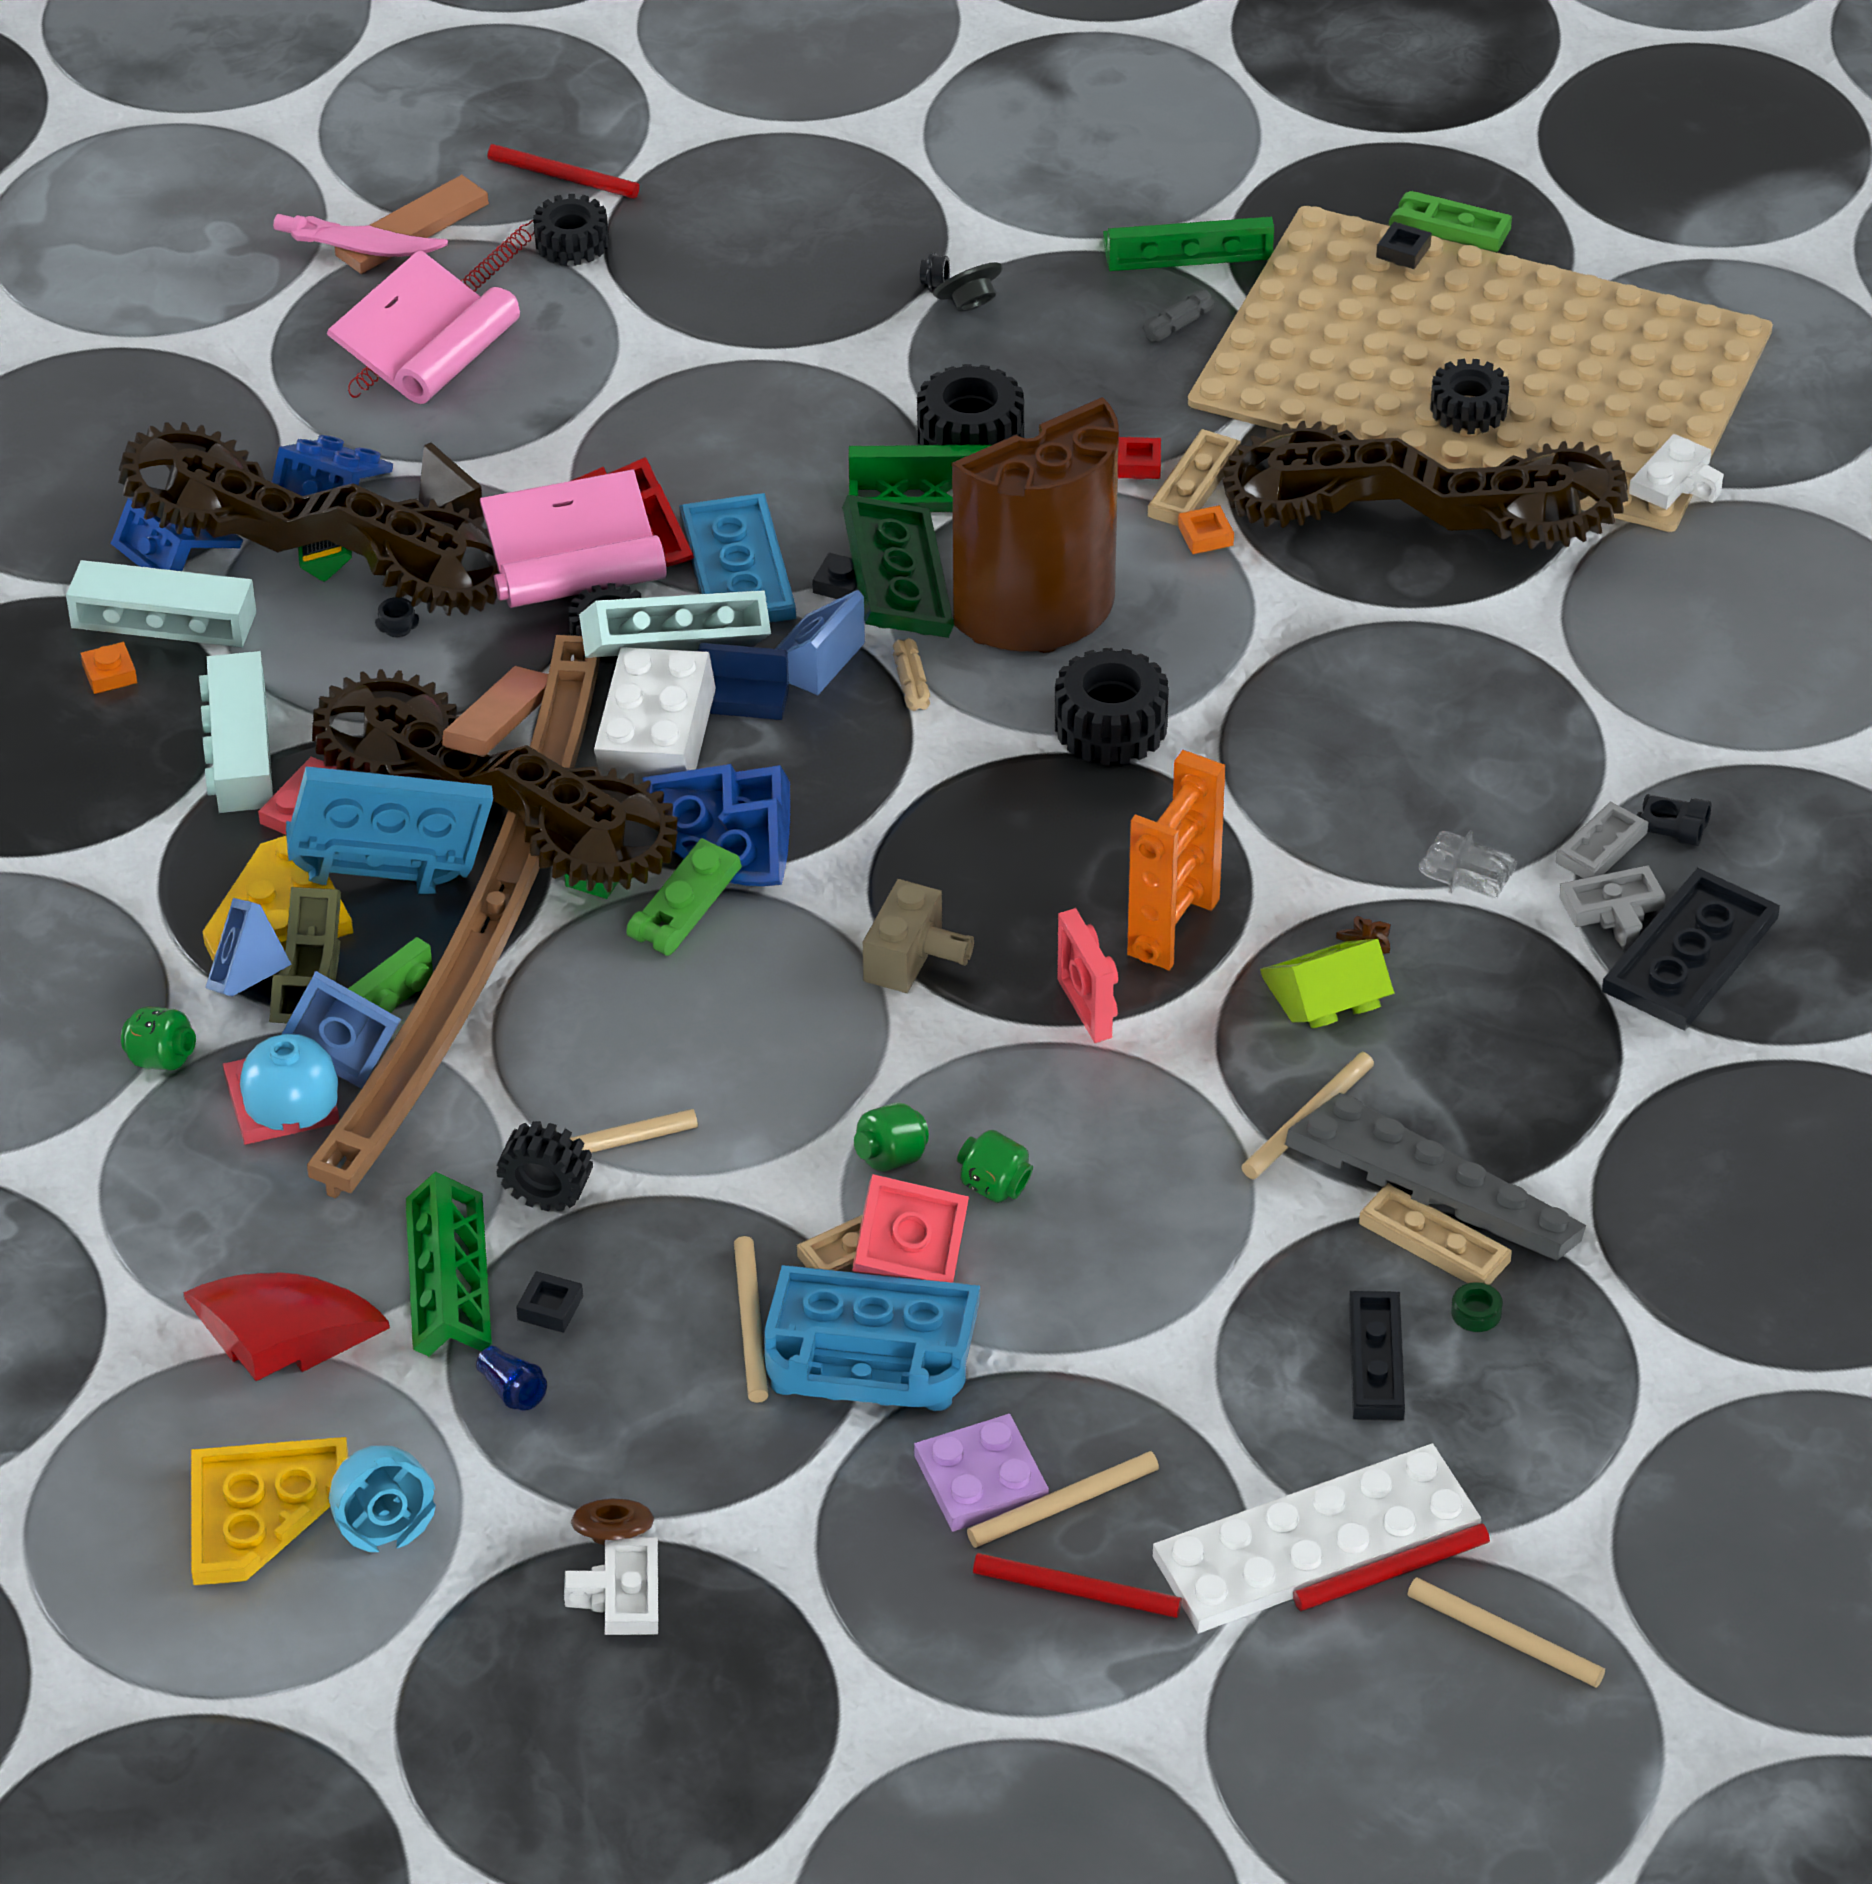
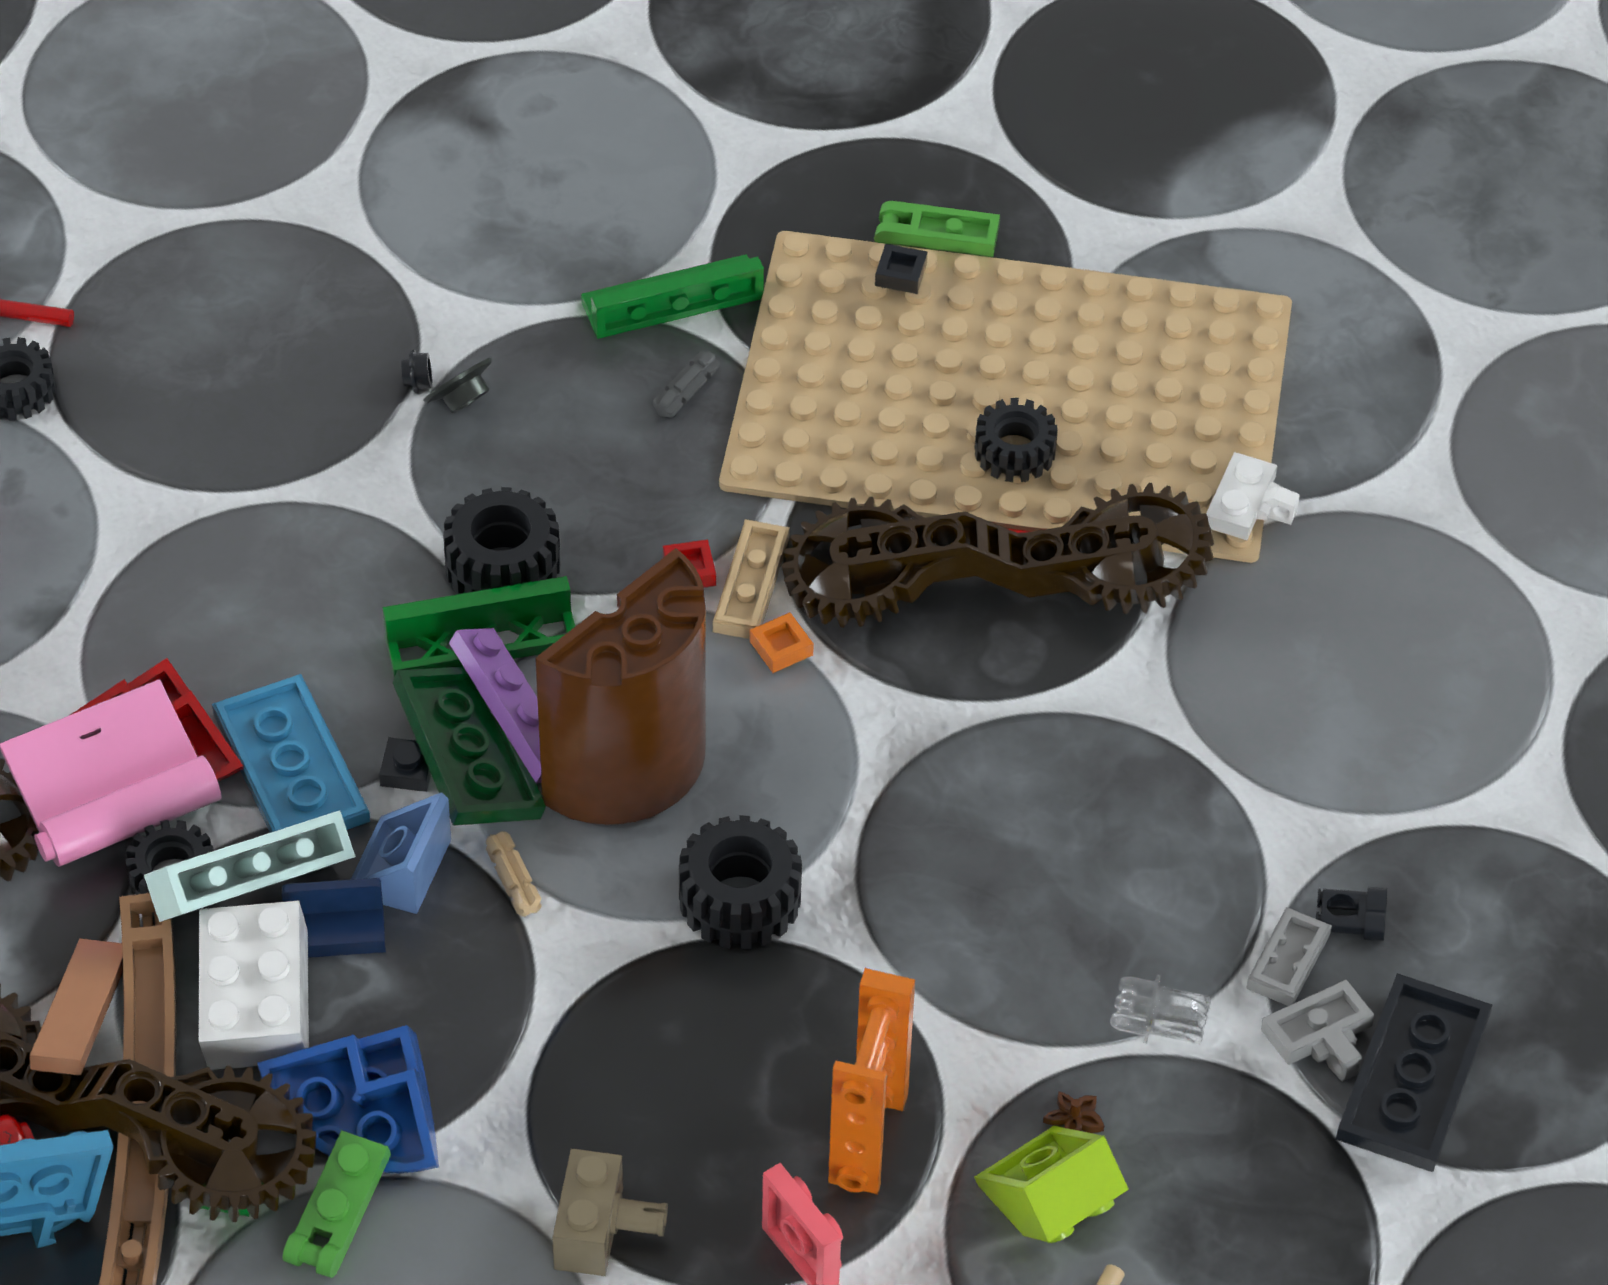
camera: 15 degrees left, 5 degrees up
(933, 511) = (503, 690): none -> medium lavender plate

